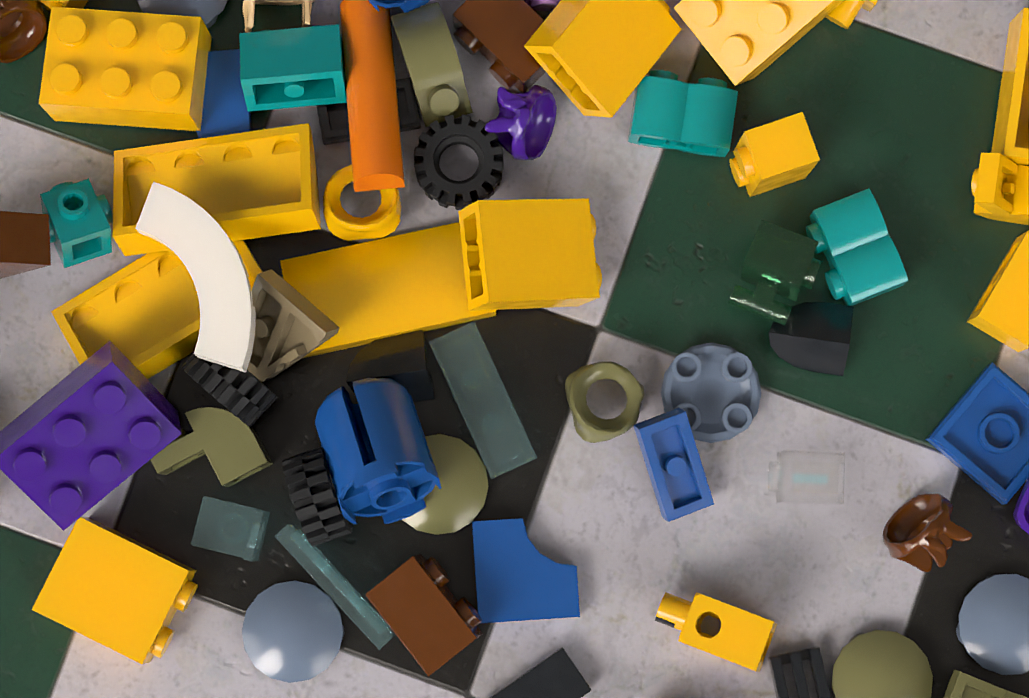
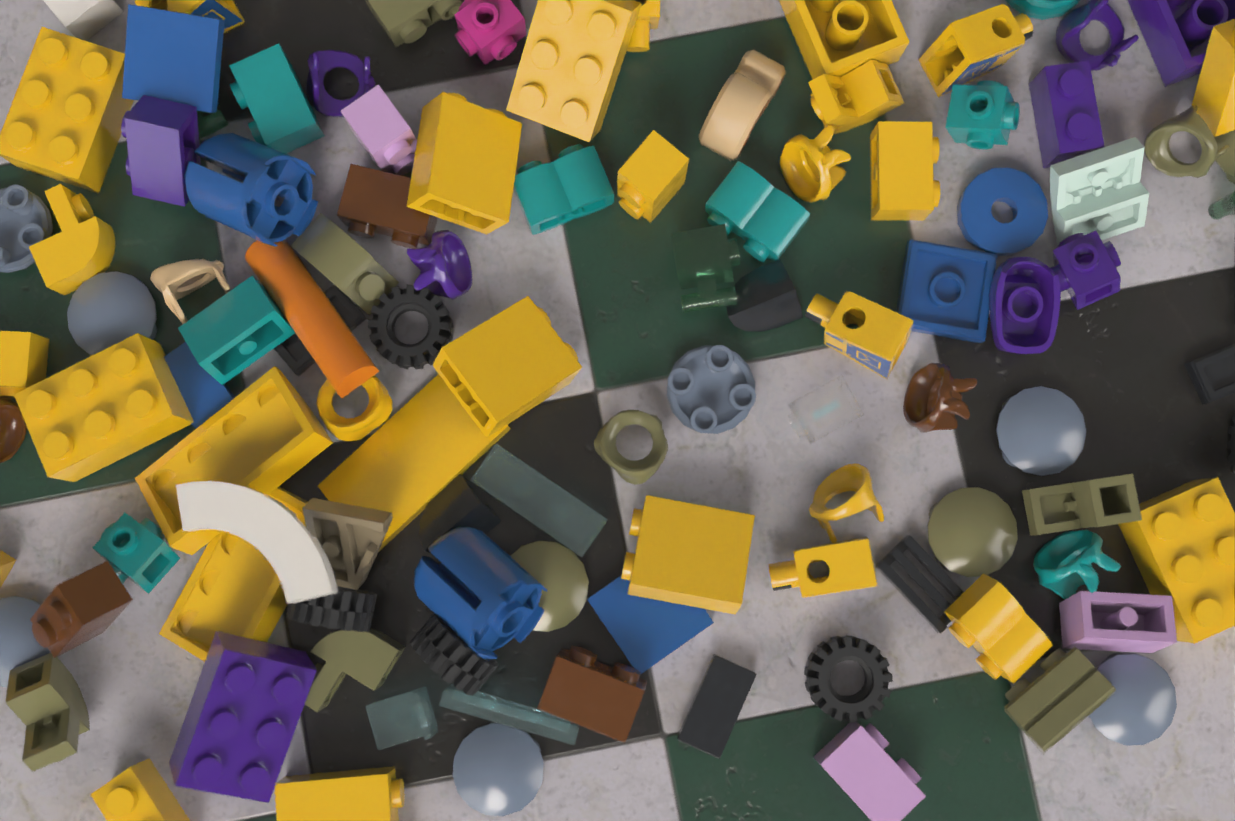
camera: 30 degrees left, 0 degrees up
(595, 536) = (689, 554): none -> yellow brick
(673, 464) = (715, 461): blue plate -> none
(790, 556) = (847, 478): none -> yellow piece
(895, 442) = (877, 340): none -> yellow torso
(905, 134) = (741, 104): none -> tan animal
(939, 235) = (811, 165): none -> yellow piece

